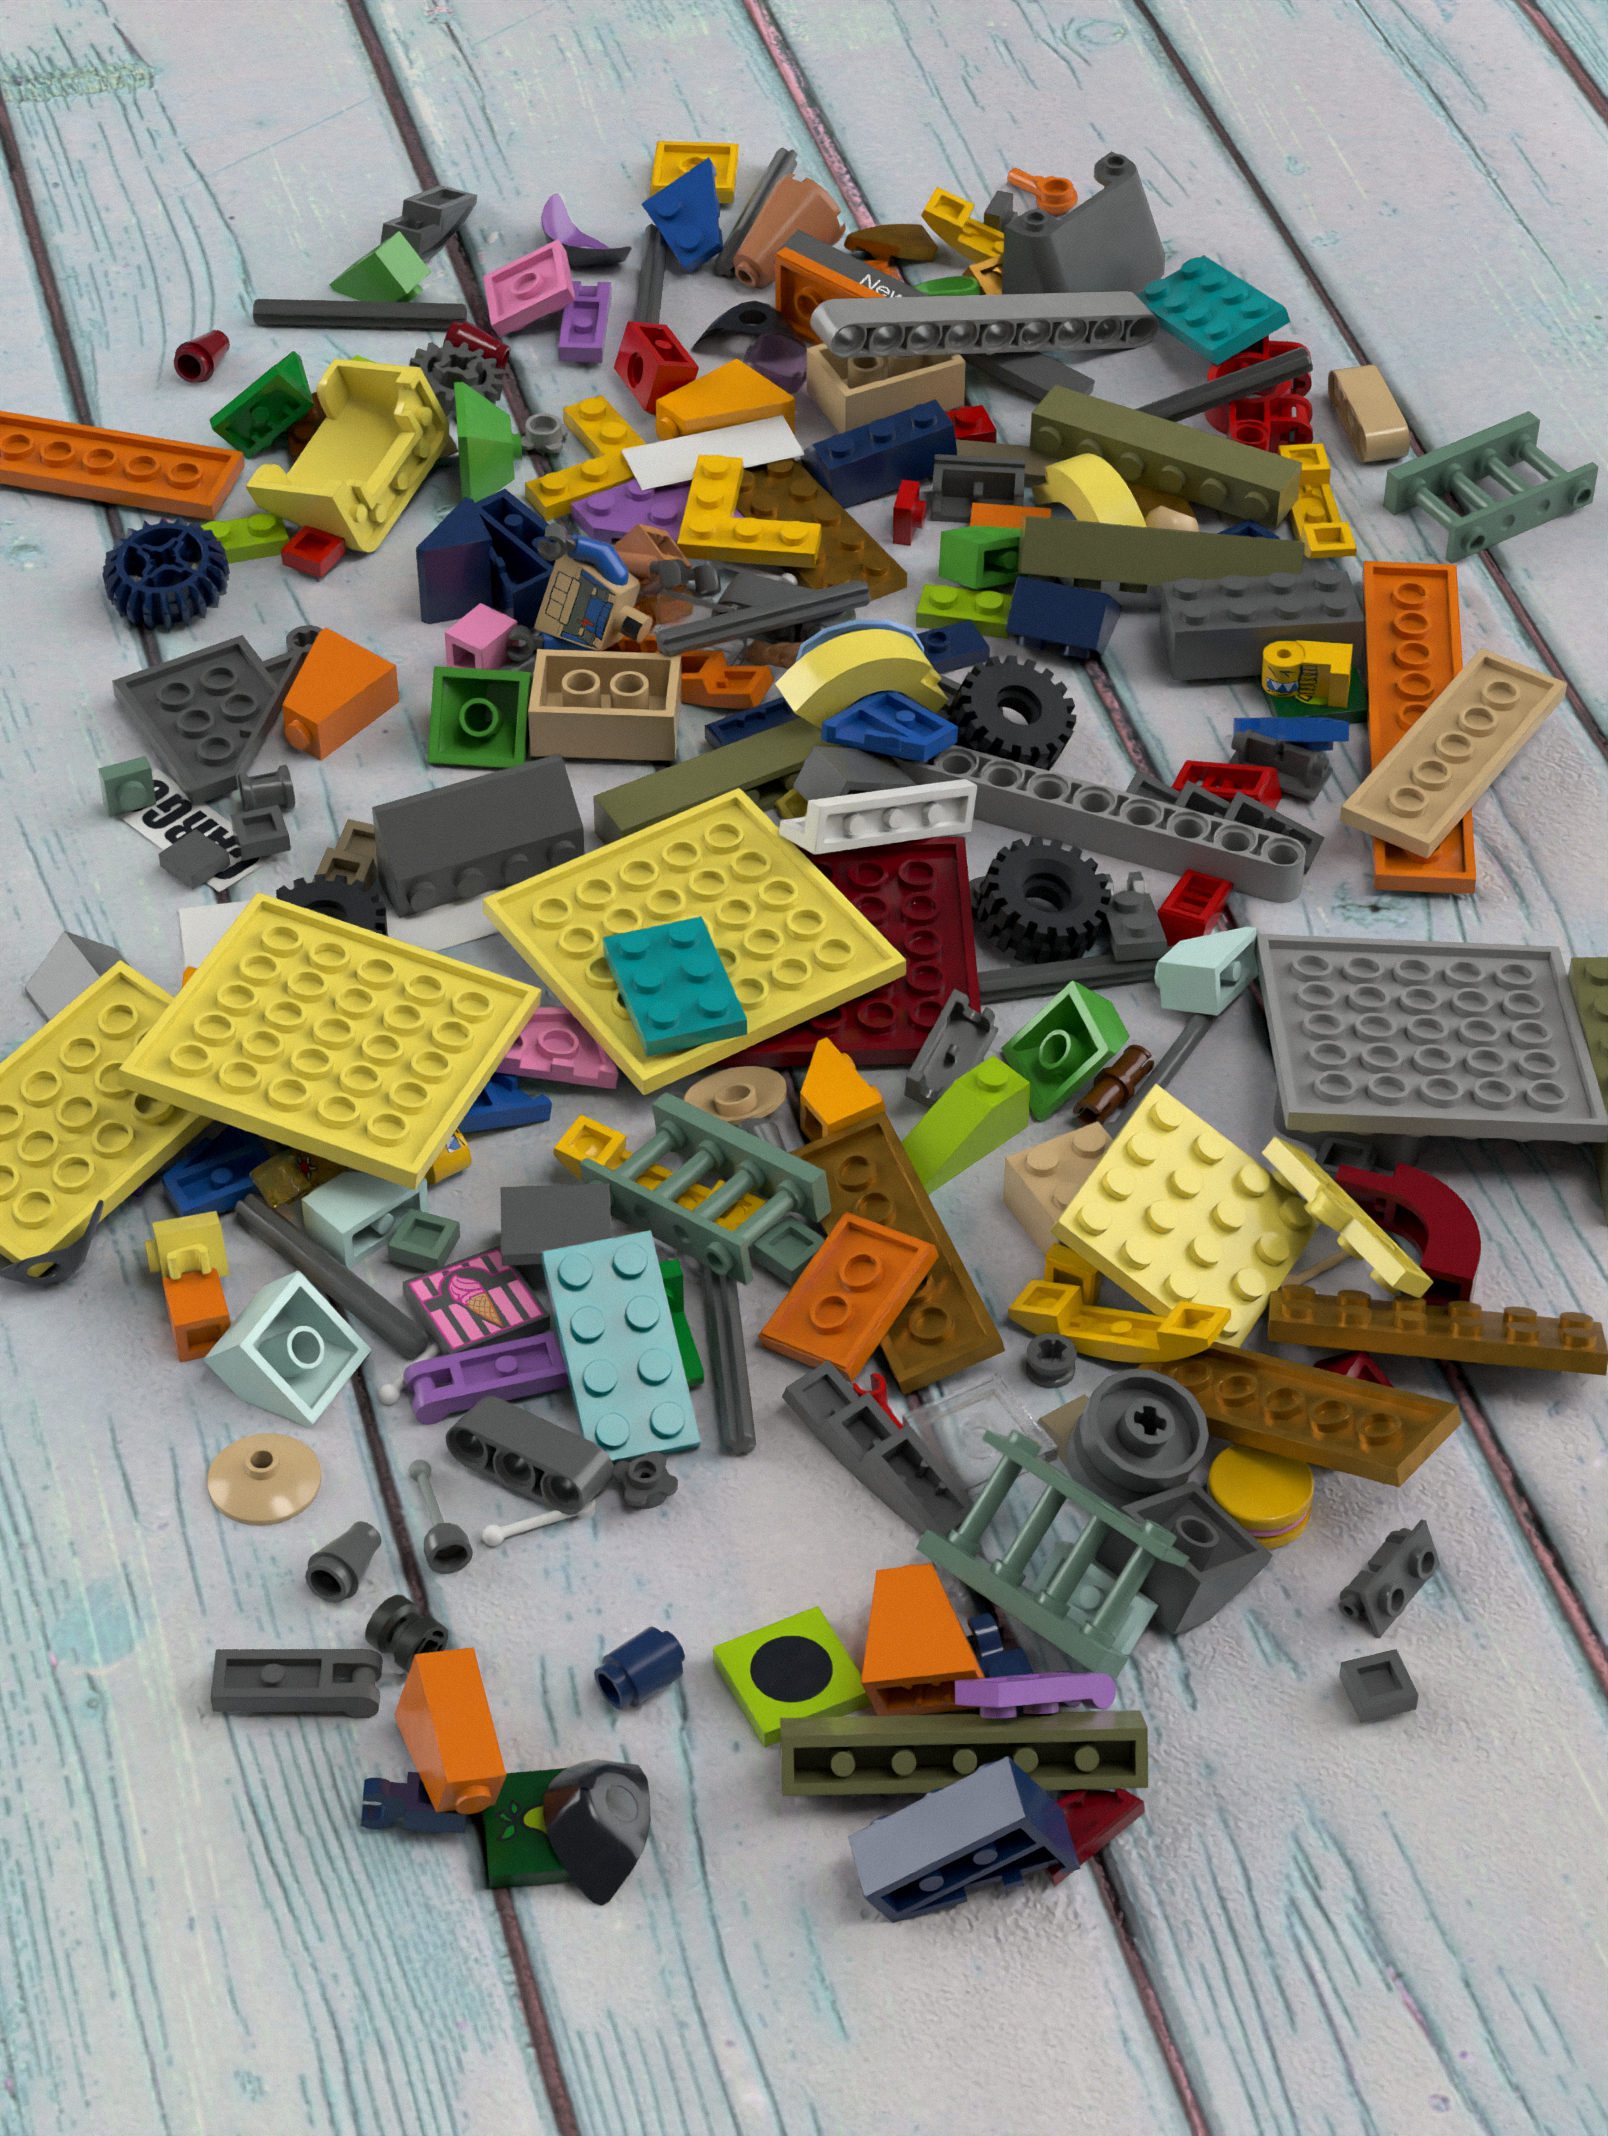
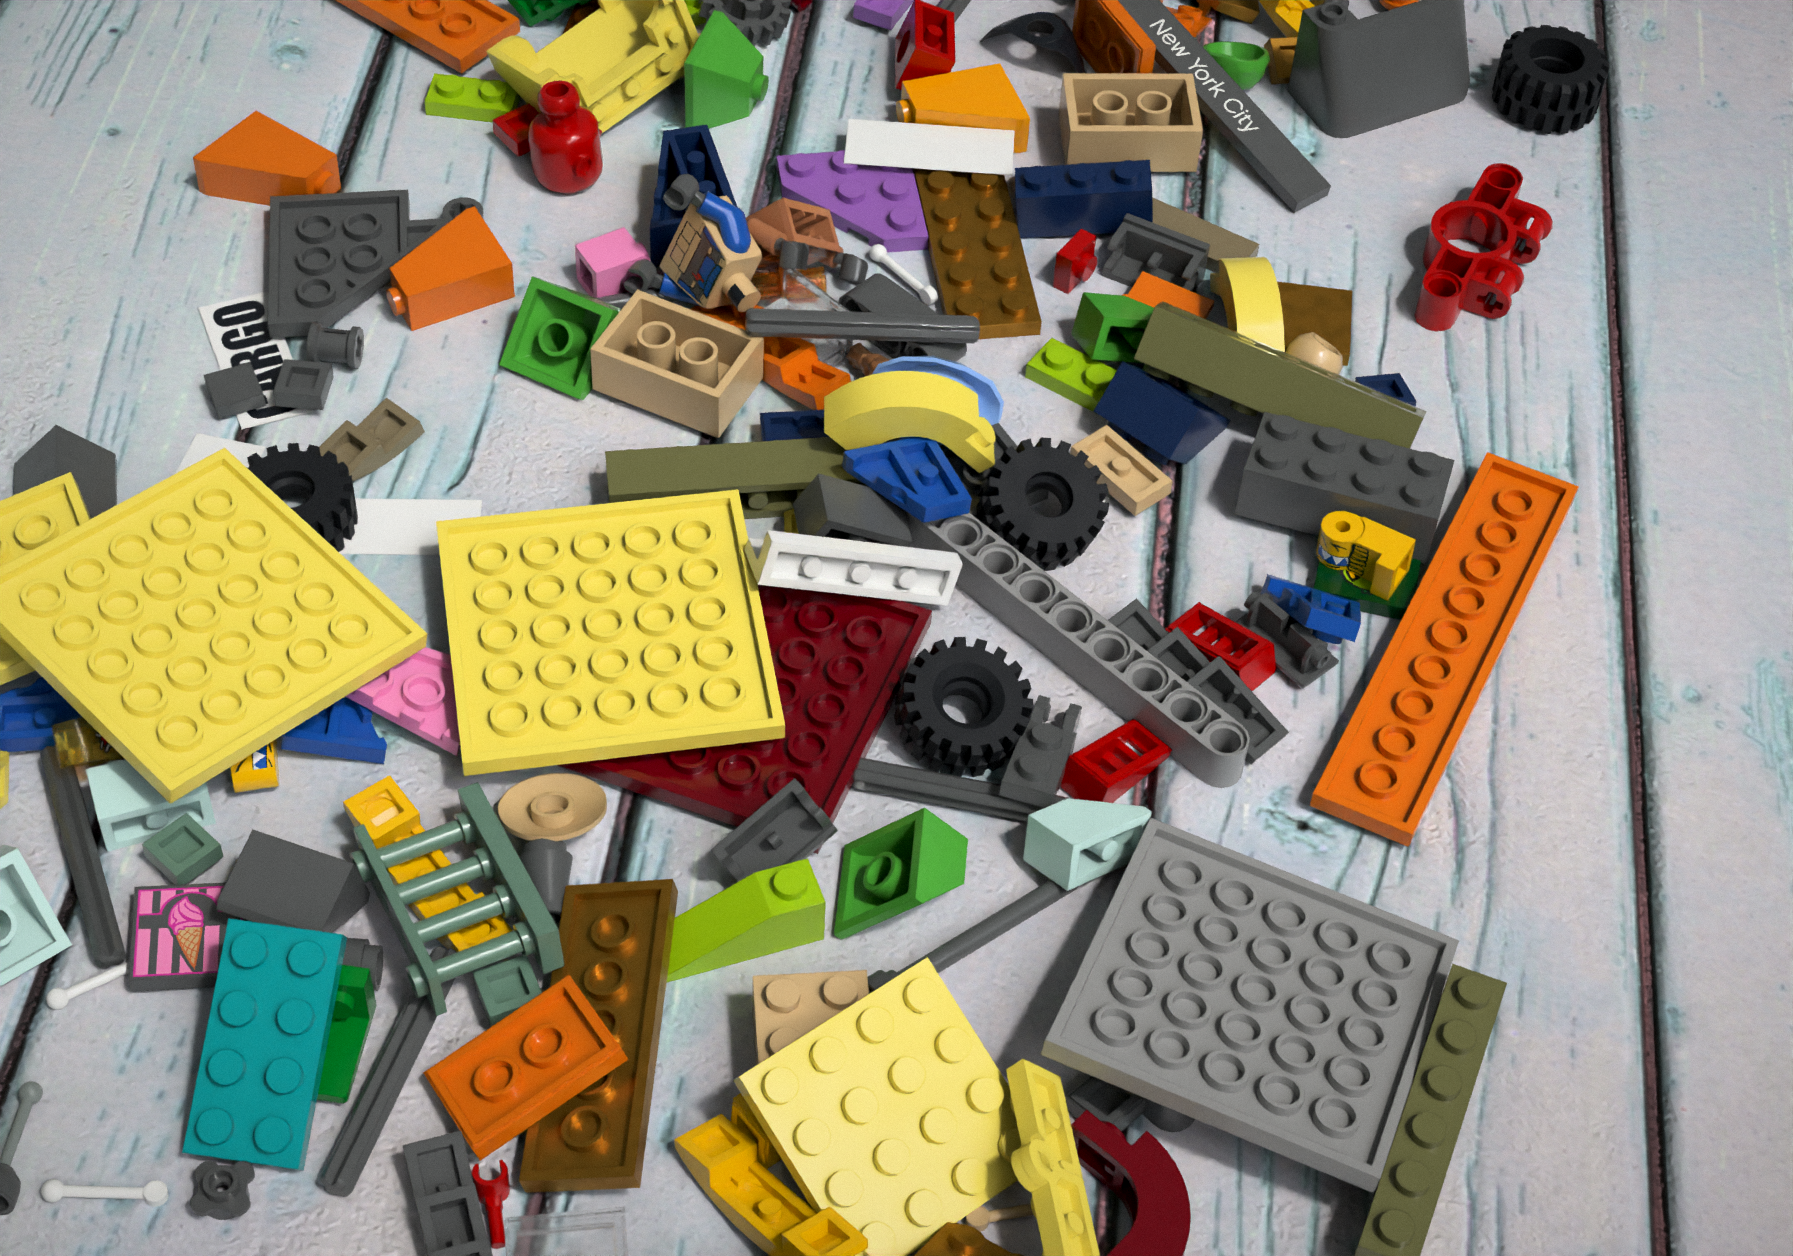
camera: 20 degrees right, 5 degrees up
(84, 651) = (264, 161): none -> orange slope
(127, 786) = (216, 301): sand green plate -> none
(168, 586) = (379, 110): dark blue gear -> none
(371, 545) = (564, 140): none -> red piece
(454, 566) = (621, 183): dark blue slope -> none
(476, 835) = (477, 455): dark grey slope -> none
(496, 1370) = (138, 1016): medium lavender plate -> none
(530, 1455) = (128, 1121): dark grey beam -> none
(544, 434) = (795, 81): light grey plate -> none
(604, 436) = (849, 97): yellow plate -> none
(674, 986) = (546, 676): teal plate -> none
(714, 533) = (882, 224): yellow plate -> none
(779, 361) = (1037, 79): clear purple hair -> none
(835, 1094) = (642, 838): light orange slope -> none
(954, 646) = (1037, 409): dark blue plate -> none
(973, 424) = (1188, 193): red plate -> none
(983, 324) = (1239, 99): light grey beam -> none
(1049, 1374) = (687, 1231): dark grey bush -> none
(1080, 676) = (1126, 472): none -> tan plate
(1114, 1086) = (923, 930): reddish brown pin -> none
(1168, 455) = (1350, 284): olive brick -> none
(1212, 309) = (1474, 150): teal plate -> none
(1231, 386) = (1419, 235): dark grey axle -> none
(1240, 227) = (1550, 79): none -> black tyre
(1315, 513) = (1473, 375): yellow slope -> none
(1368, 413) = (1579, 300): tan beam -> none
(1453, 753) = (1458, 690): tan plate -> none
(1481, 456) = (1652, 381): sand green fence -> none

